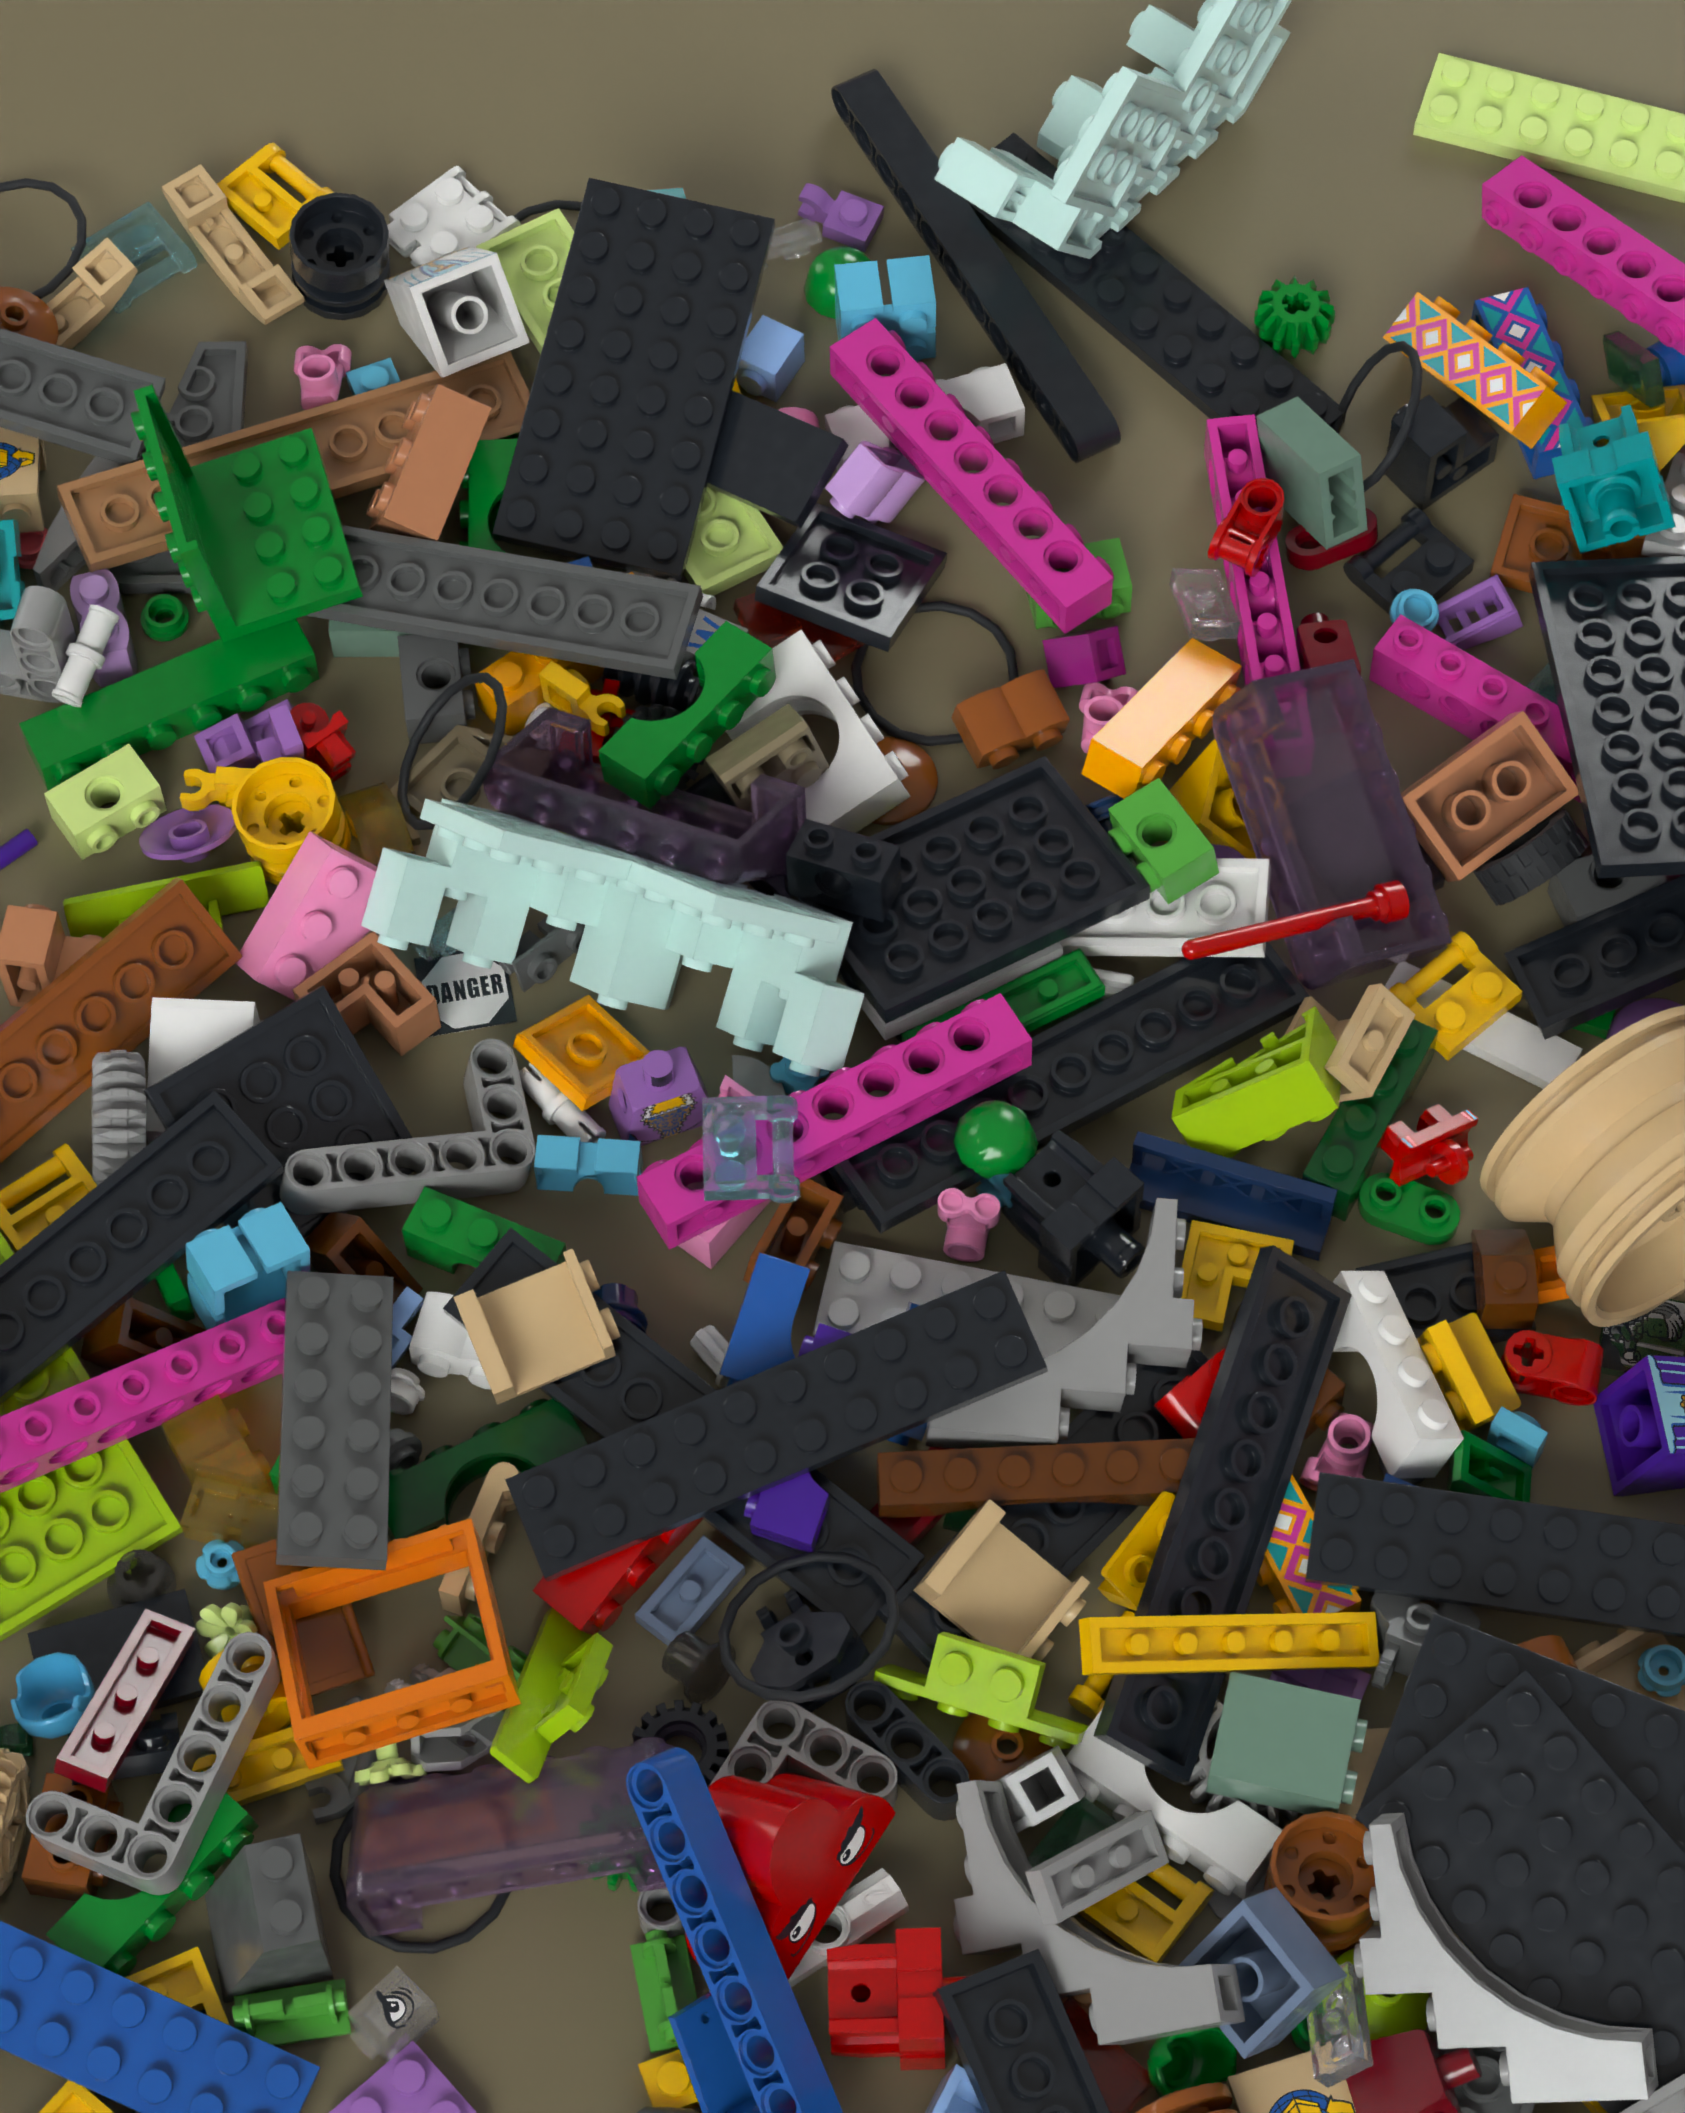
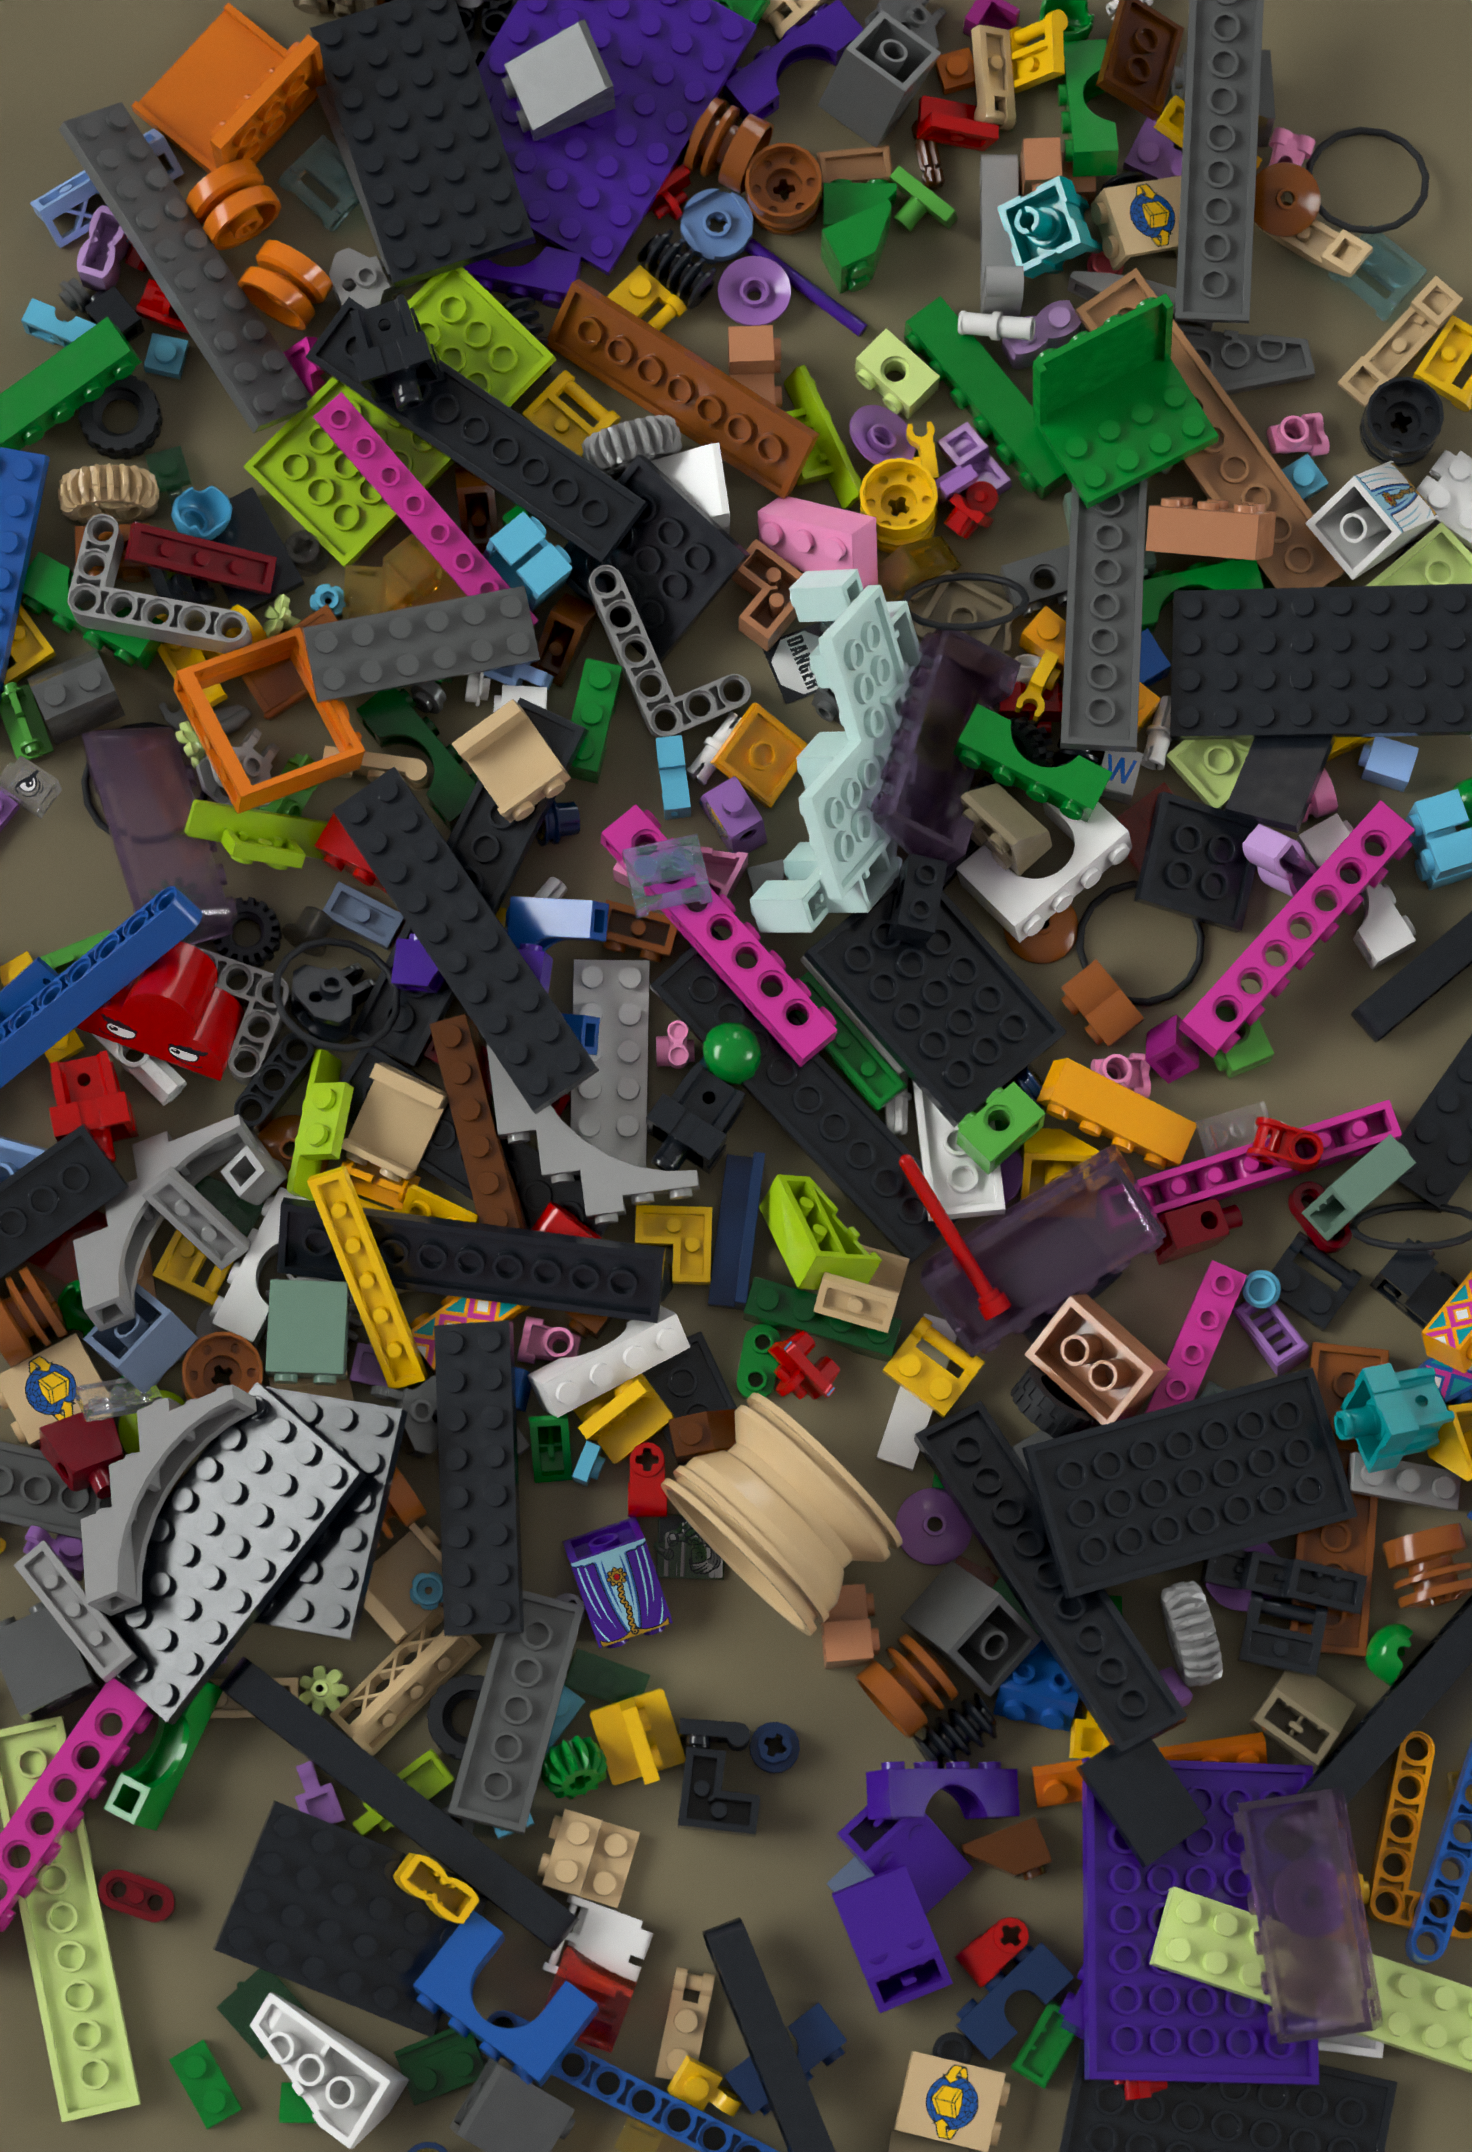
camera: 75 degrees right, 15 degrees up
(1063, 1660) = (375, 1186): none -> light orange hinge

